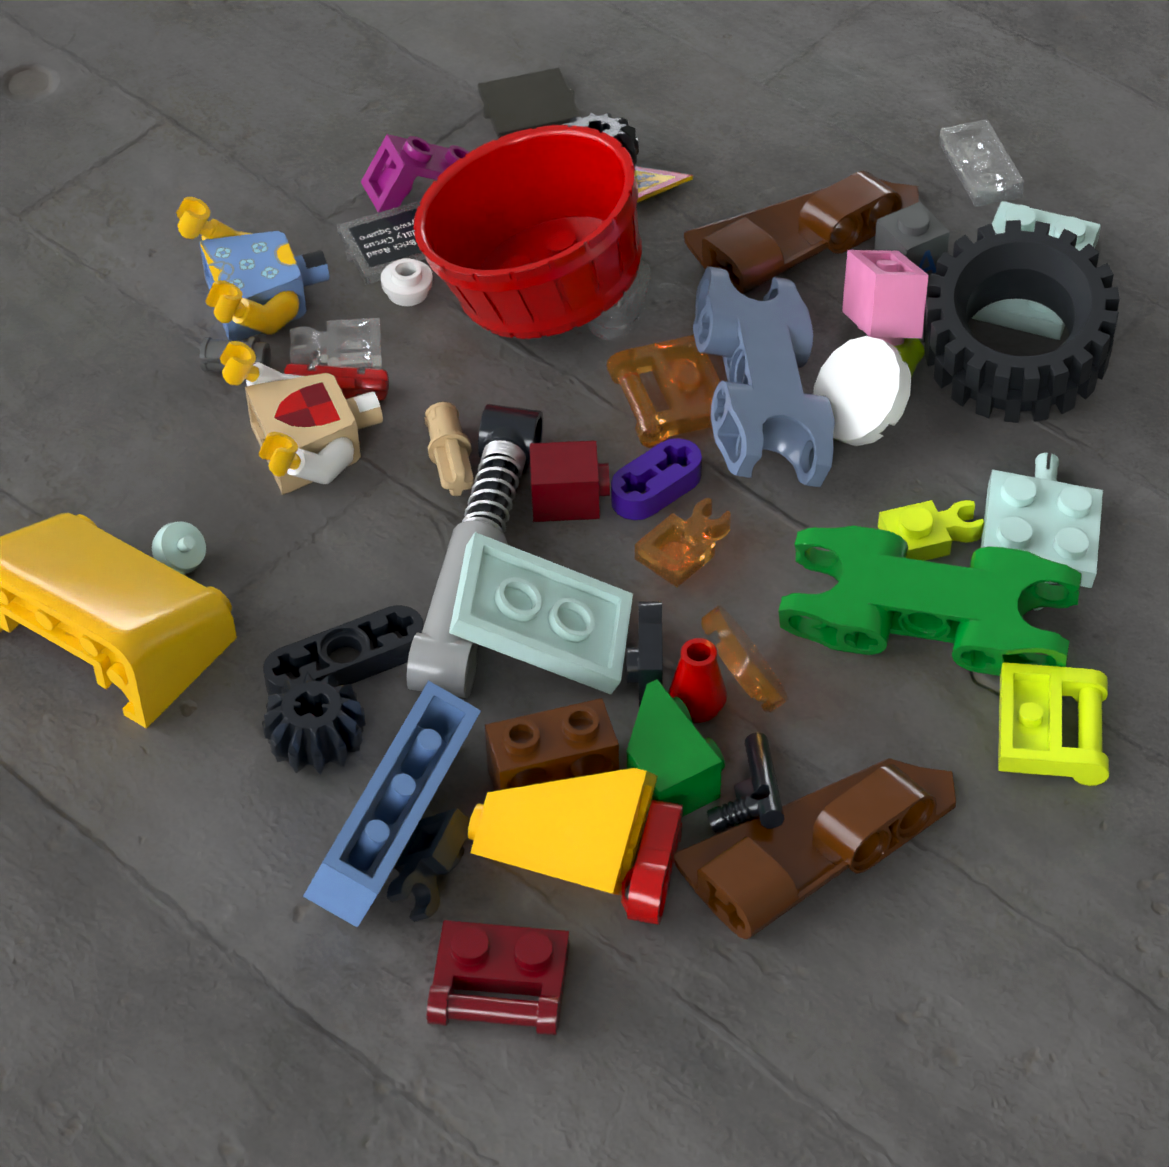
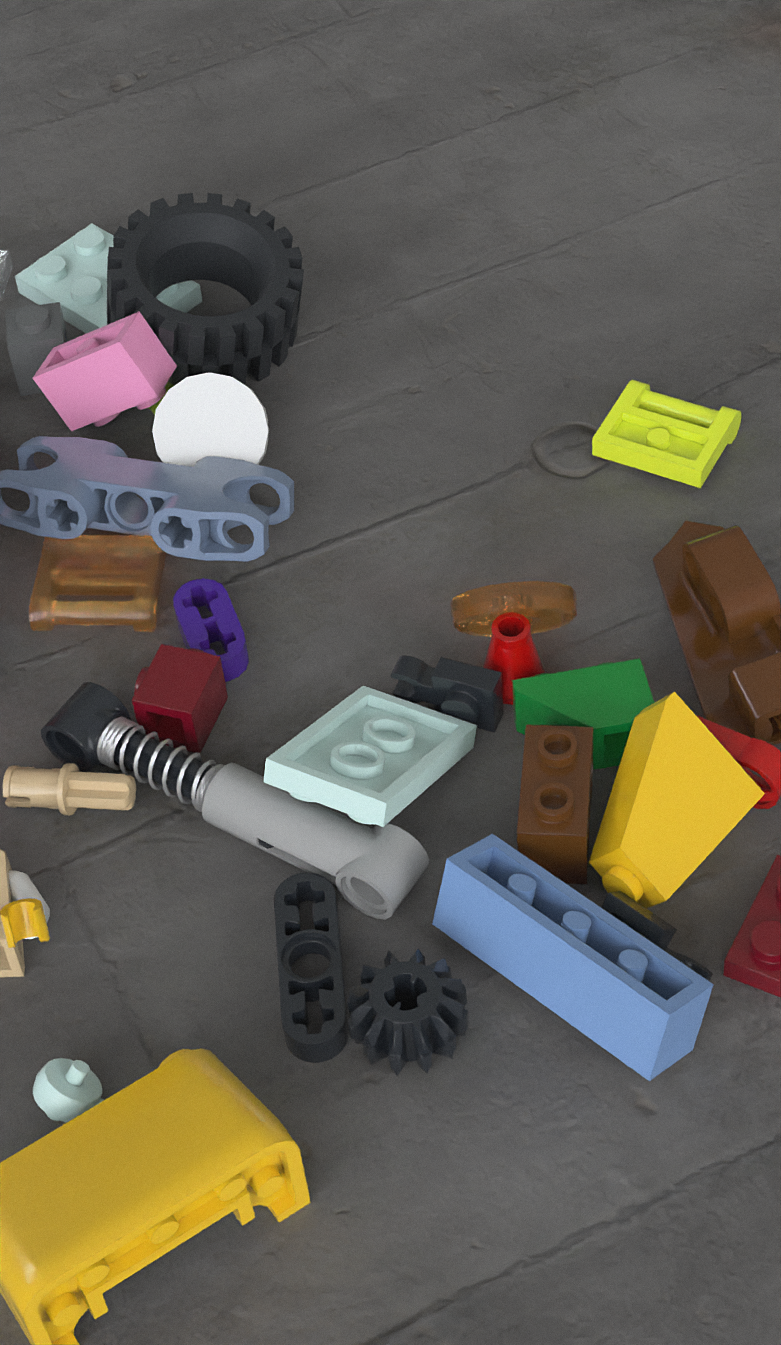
camera: 65 degrees left, 0 degrees up
(682, 547) = (315, 632): clear orange plate -> none
(754, 796) = (656, 657): black hose -> none
(929, 531) = (391, 455): neon yellow plate -> none
(960, 605) = (477, 488): green piece -> none
(1045, 517) = (435, 374): light aqua plate -> none

